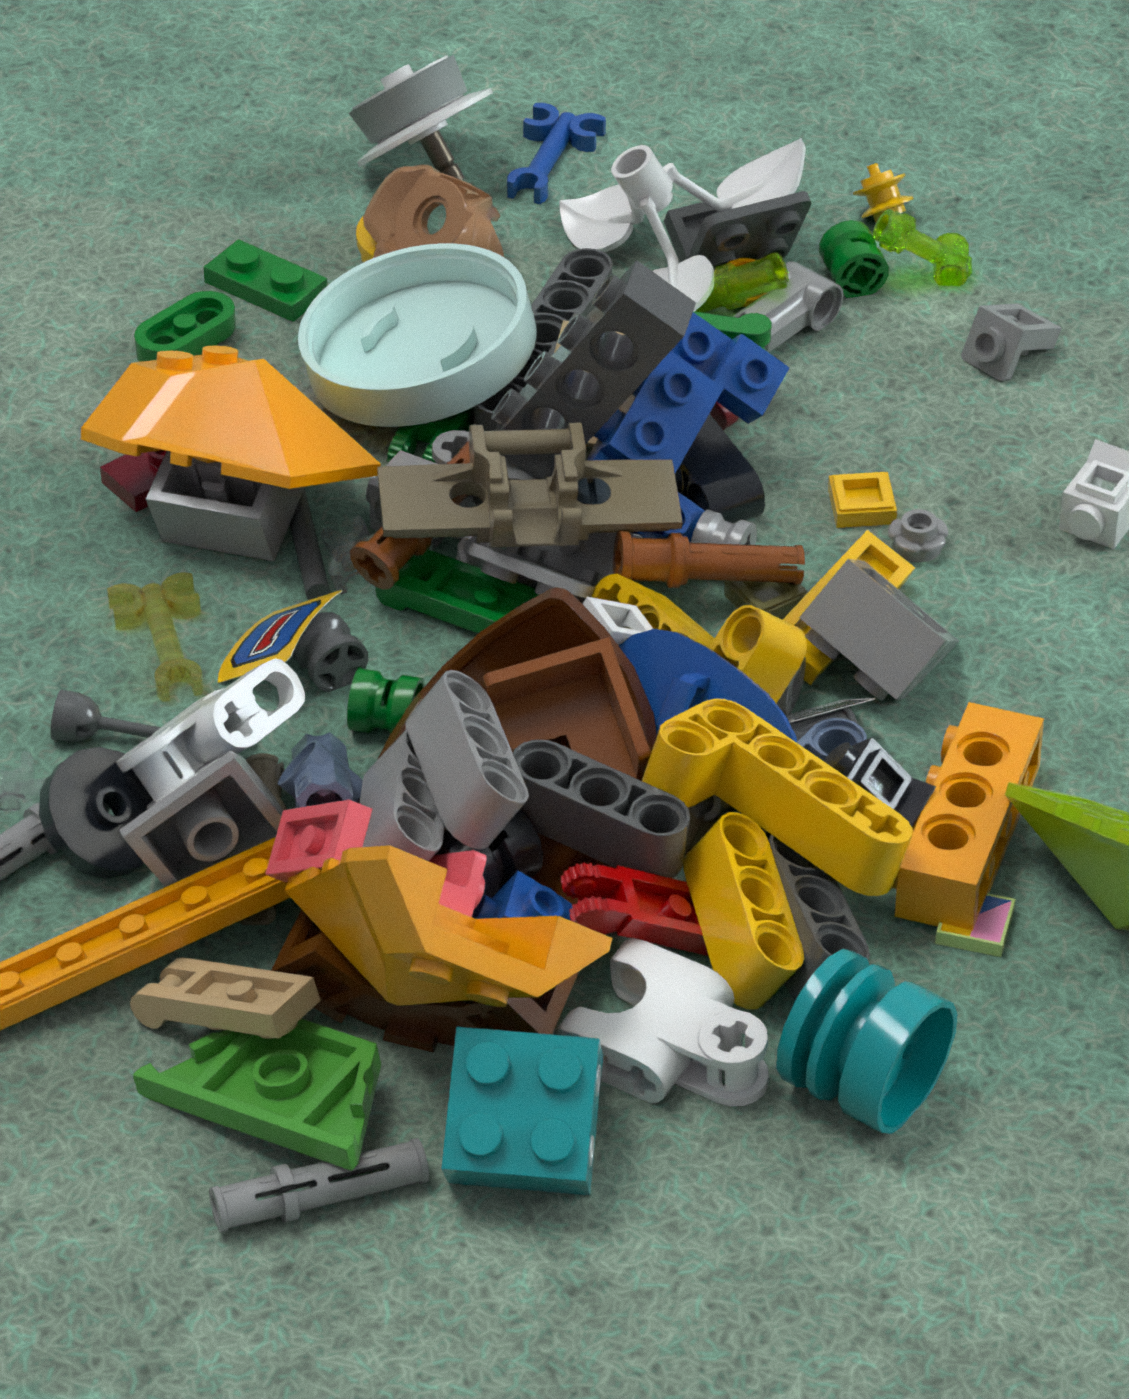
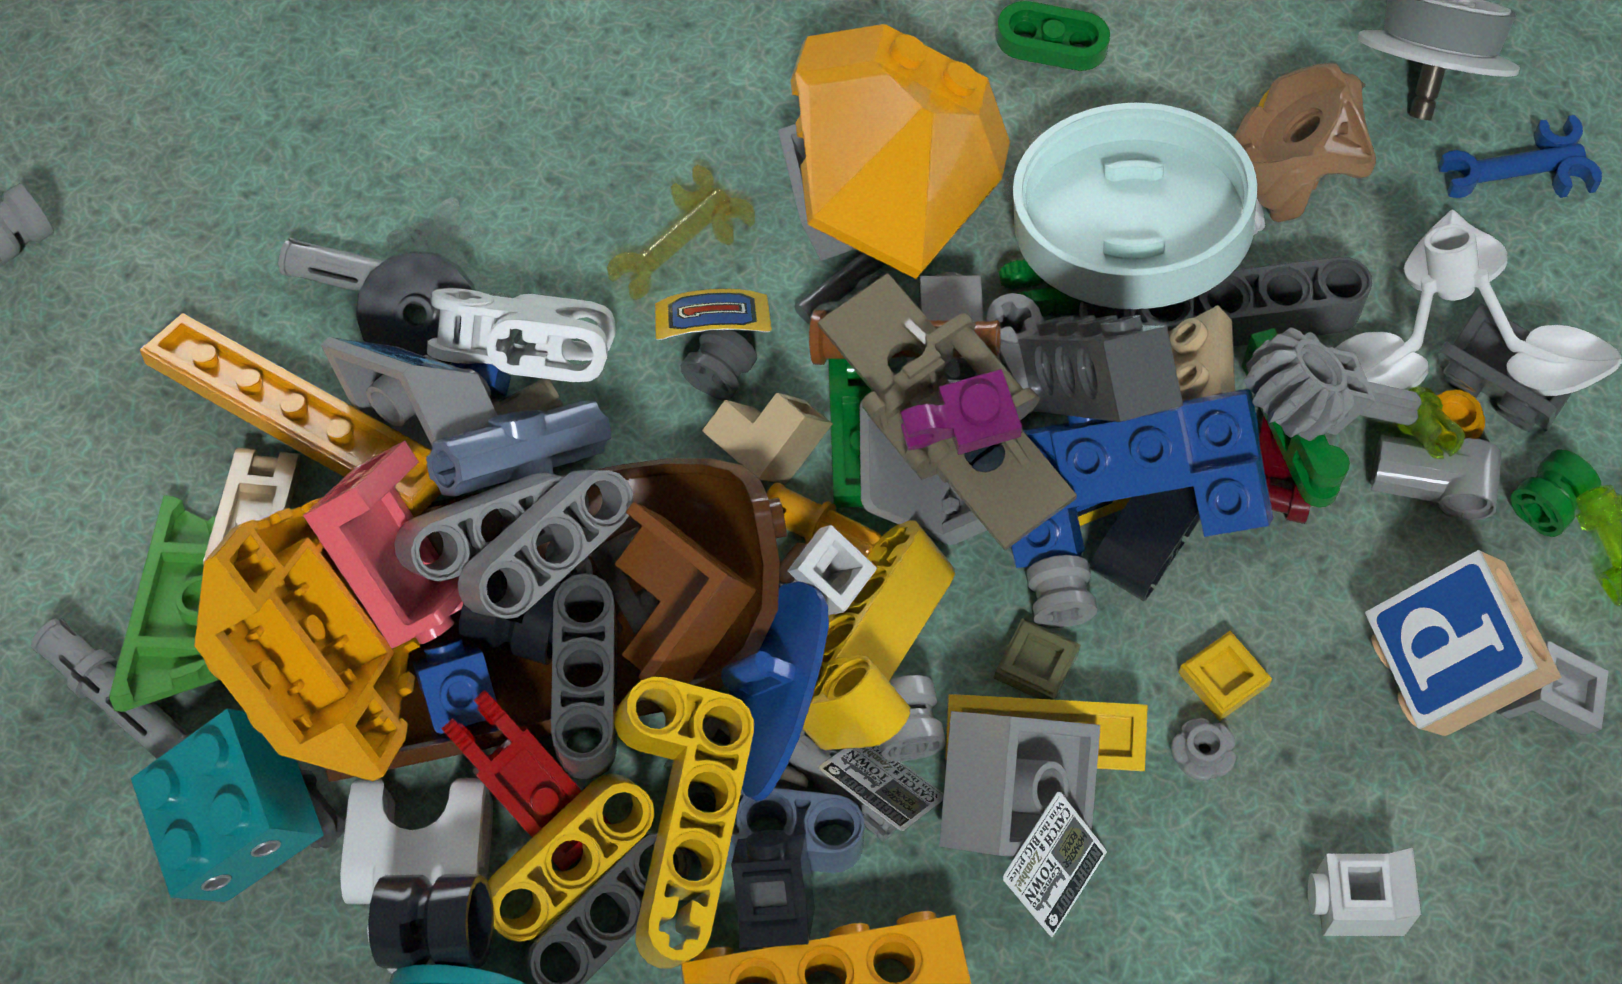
camera: 60 degrees right, 20 degrees up
(79, 718) = (535, 231): dark grey hinge -> none
(264, 280) = (1170, 54): green plate -> none
(379, 701) = (678, 429): green wheel -> none
(445, 630) = (771, 441): none -> tan piece
(570, 453) = (971, 412): none -> magenta plate
(677, 560) = (987, 570): dark orange pin -> none
(705, 277) = (1320, 387): none -> light grey gear
(759, 977) = (426, 921): none -> black wheel
(949, 346) = (1461, 645): none -> piece
(960, 642) = (1054, 864): none -> sticker

